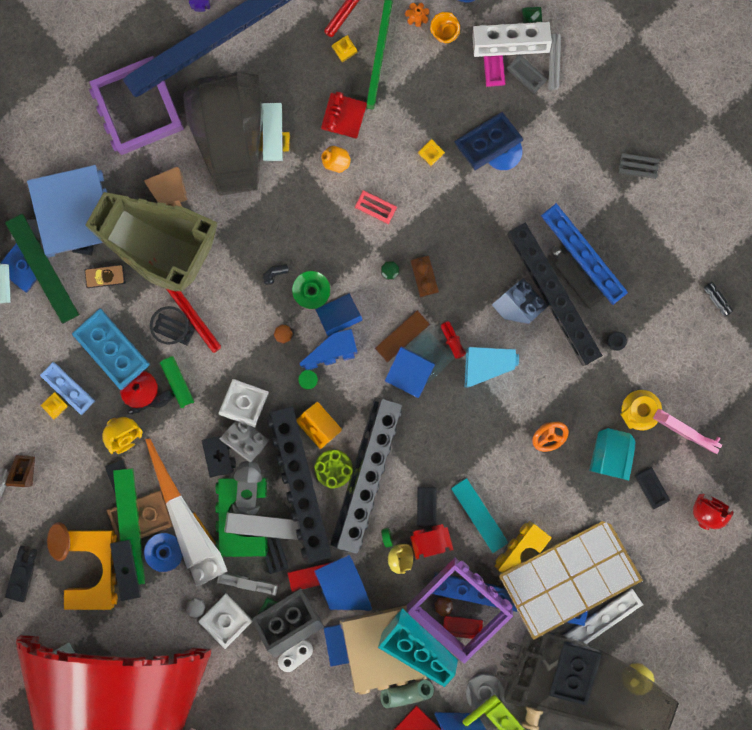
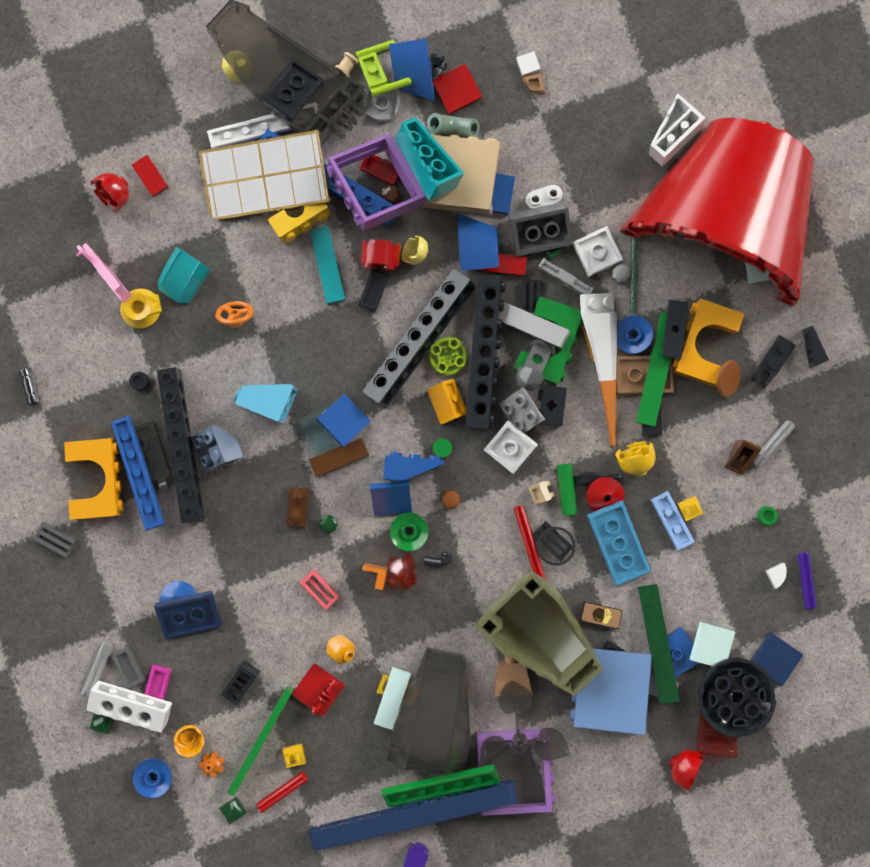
camera: 165 degrees left, 0 degrees up
(157, 116) = (548, 747): none -> clear smoke plant
(182, 609) = (634, 275): none -> clear green bar
(199, 68) = (440, 785): none -> green tile
(200, 370) = (540, 492): none -> tan tile
(305, 251) = (400, 570): none -> clear red plate
(326, 244) = (381, 577): none -> orange panel
(387, 537) = (420, 274): green tile -> none
(415, 108) = (248, 673): none -> black slope
(431, 152) = (247, 623): yellow tile -> none
(453, 340) = (292, 436): red axle -> none
(623, 261) = (108, 500): none -> light orange arch
(652, 488) = (158, 233): black tile -> none
(681, 541) = (150, 176): none -> red tile

